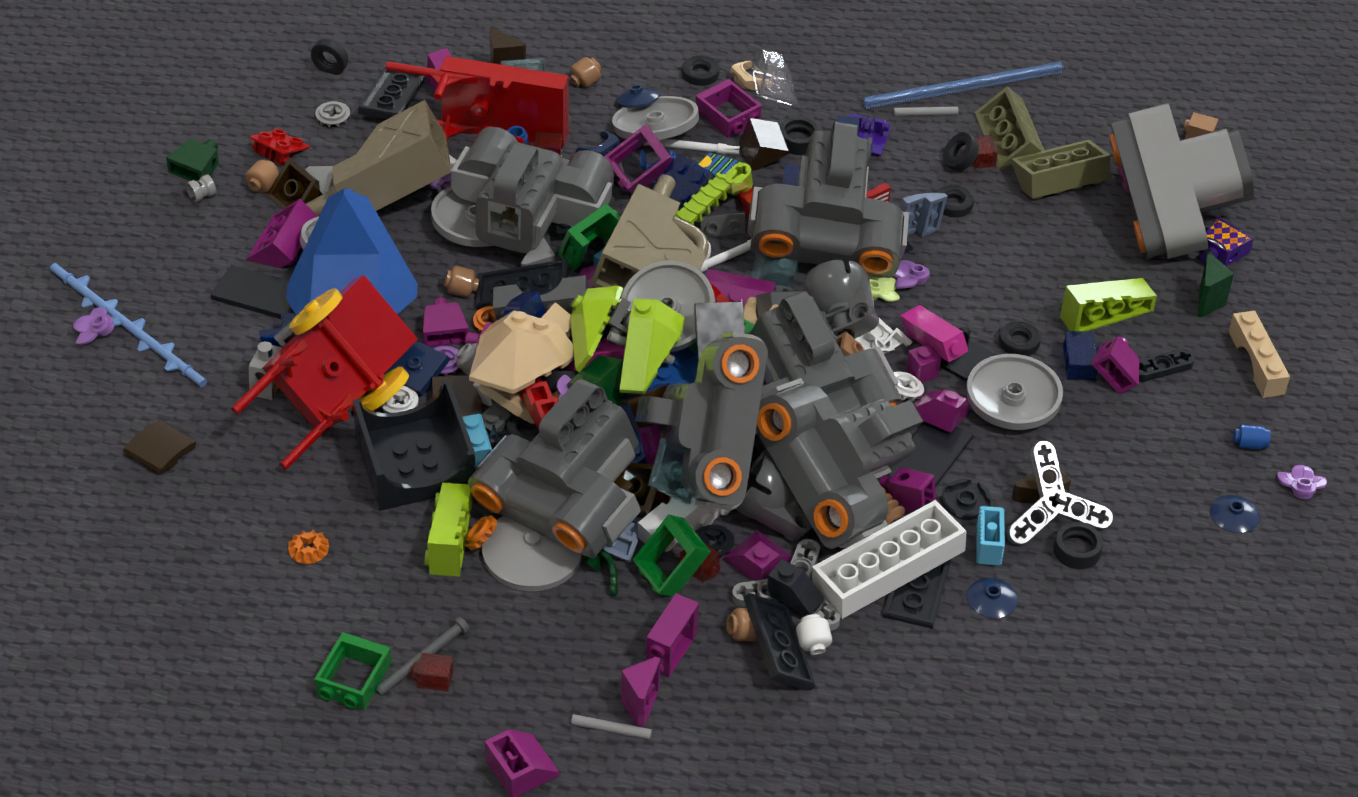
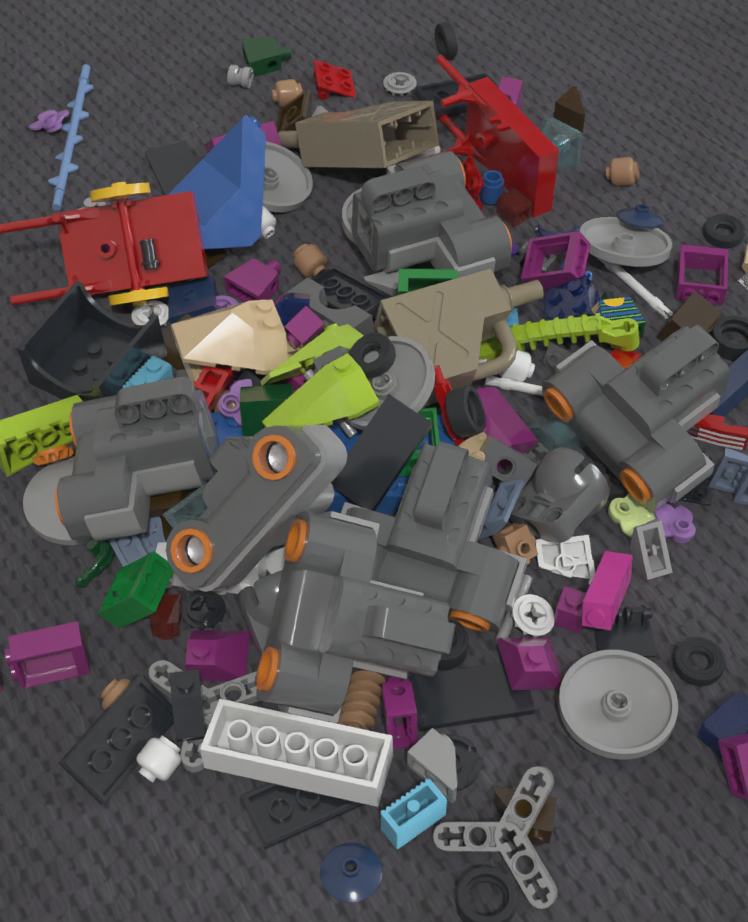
camera: 50 degrees right, 5 degrees up
(369, 347) = (149, 254): none -> black pin
(562, 310) = (304, 328): none -> magenta brick
(639, 278) = (382, 363): none -> black tyre
(731, 287) = (465, 411): none -> black tyre
(918, 293) = (650, 549): none -> light grey slope
(966, 497) = (435, 760): none -> light grey slope

